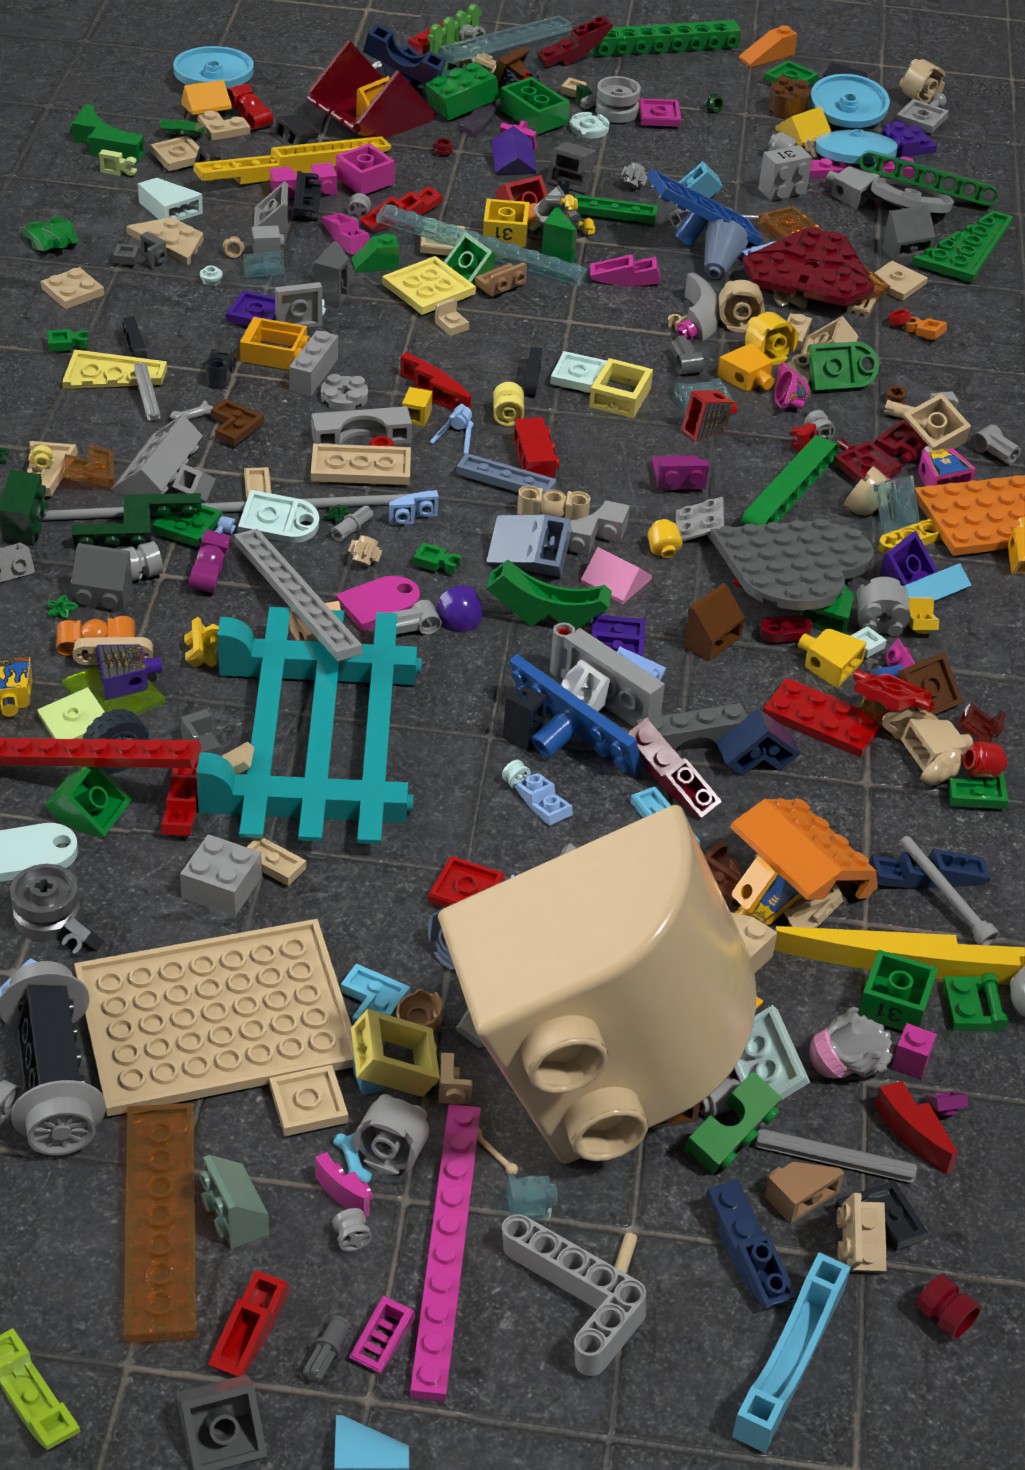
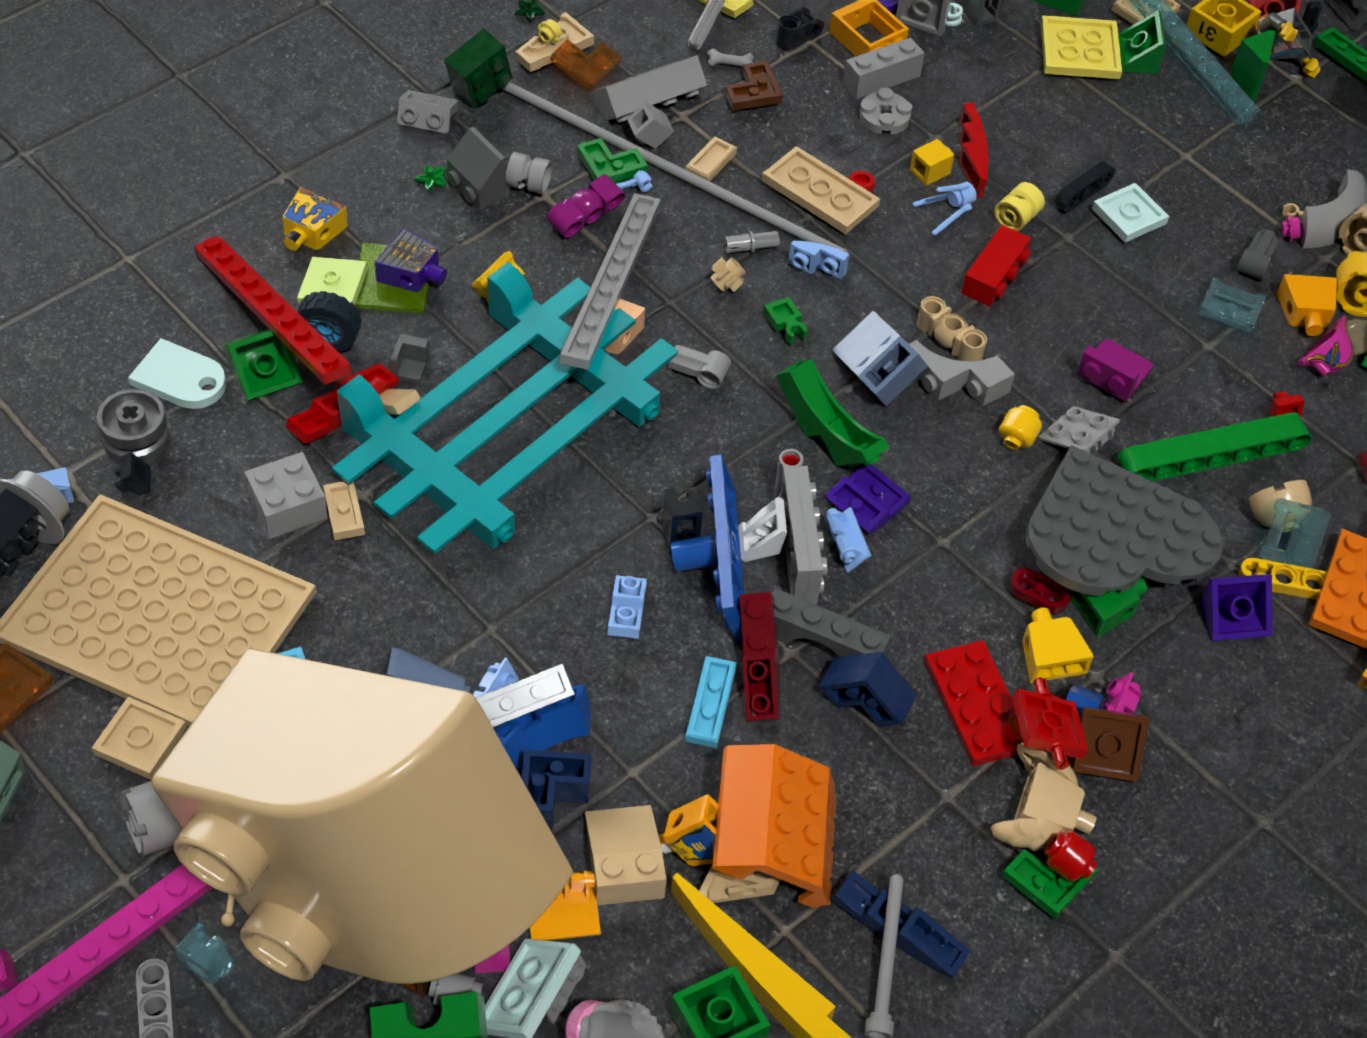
camera: 40 degrees right, 10 degrees up
(70, 631) = (422, 219): orange piece -> none
(91, 645) = (445, 251): tan beam -> none
(137, 518) = (566, 132): dark green bracket -> none
(279, 517) = (690, 197): light aqua tile -> none
(337, 513) = (752, 225): dark green plant -> none
(341, 425) = (833, 141): light grey arch -> none
(343, 1188) = (80, 834): dark pink slope -> none
(351, 1229) = (45, 872): light grey wheel -> none
(352, 1158) = (110, 827): medium azure piece -> none
(377, 596) = (697, 327): dark pink tile -> none
(449, 319) = (1065, 90): tan bracket -> none
(460, 609) = (752, 381): dark purple helmet -> none
(461, 880) = (468, 642): red plate -> none
(501, 474) = (940, 276): sand blue plate -> none
(502, 278) = (1159, 77): medium nougat bracket -> none
(515, 772) = (625, 565): light aqua bush -> none
(616, 574) = (935, 435): bright pink slope -> none
(626, 271) = (1298, 134): dark pink slope -> none
(626, 402) = (1136, 265): light yellow window -> none
(707, 414) = (1207, 326): torso -> none
(713, 623) = (964, 540): reddish brown slope -> none
(725, 871) = (695, 779): copper wing -> none
(823, 425) = (1317, 405): light grey wheel -> none
(859, 459) = (1327, 472): dark red plate -> none
(874, 641) = (1107, 656): light aqua plate -> none
(883, 606) = (1154, 631): light grey brick -> none
(922, 616) = (1194, 665): yellow bracket -> none
(940, 584) = (1244, 645): medium azure tile -> none
(980, 724) = (1126, 815): clear red bracket -> none

